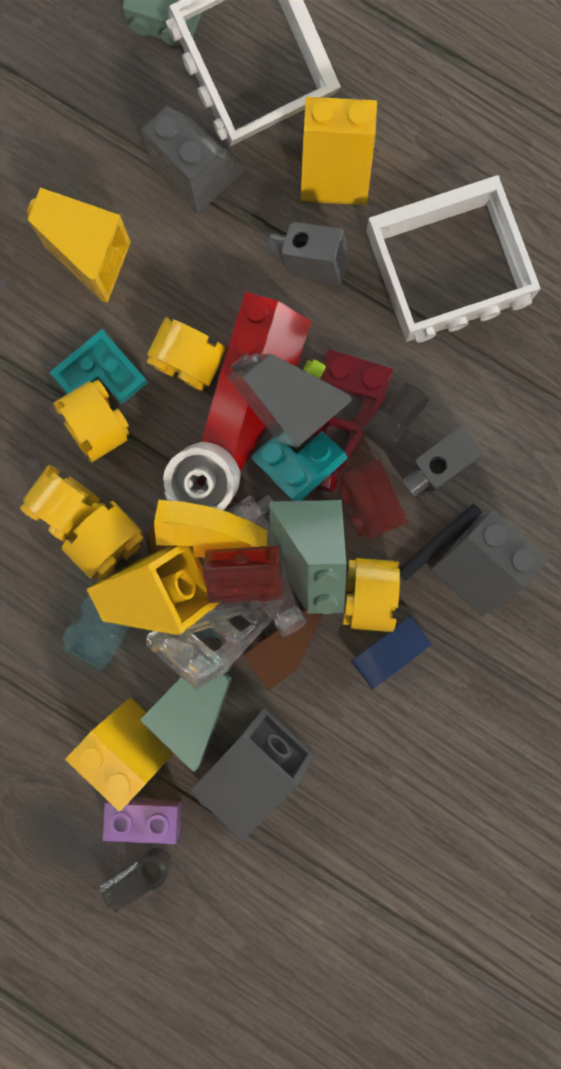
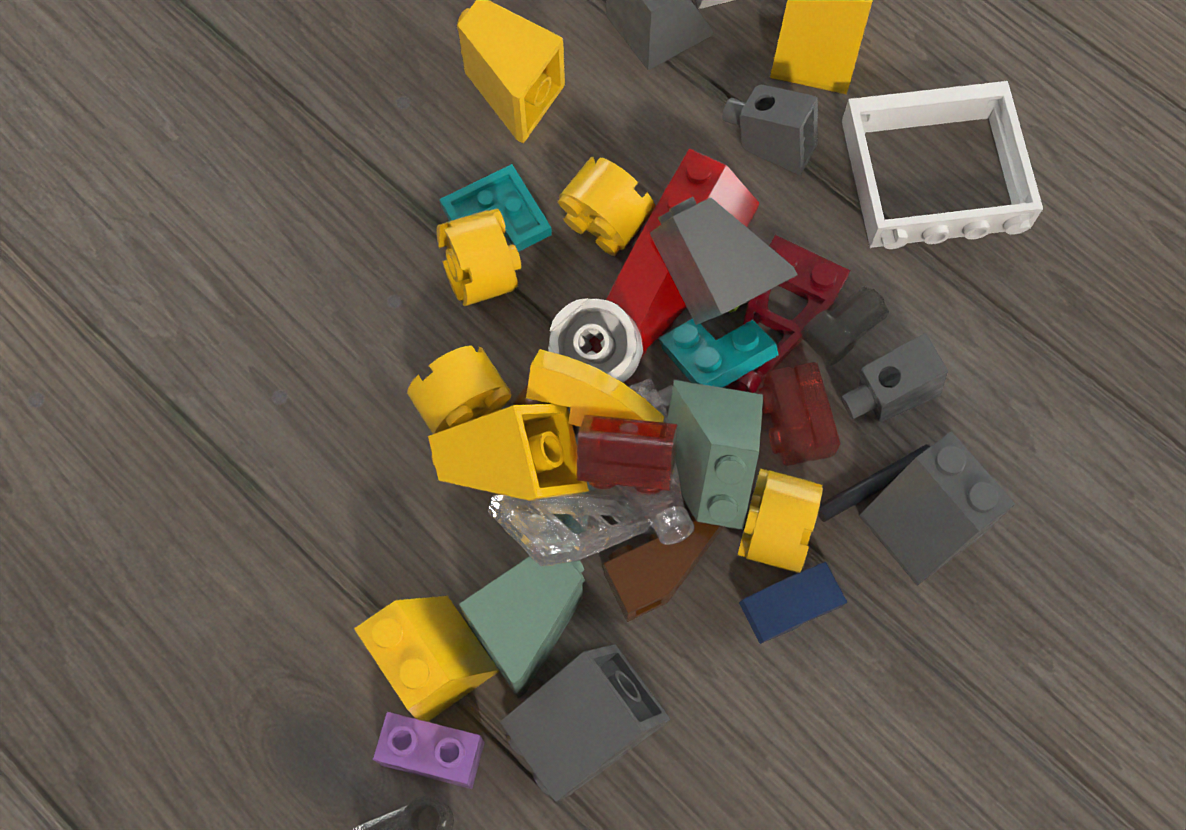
camera: 10 degrees right, 15 degrees down
(59, 503) = (414, 336): yellow brick -> none
(92, 638) = (425, 508): clear light blue bracket -> none

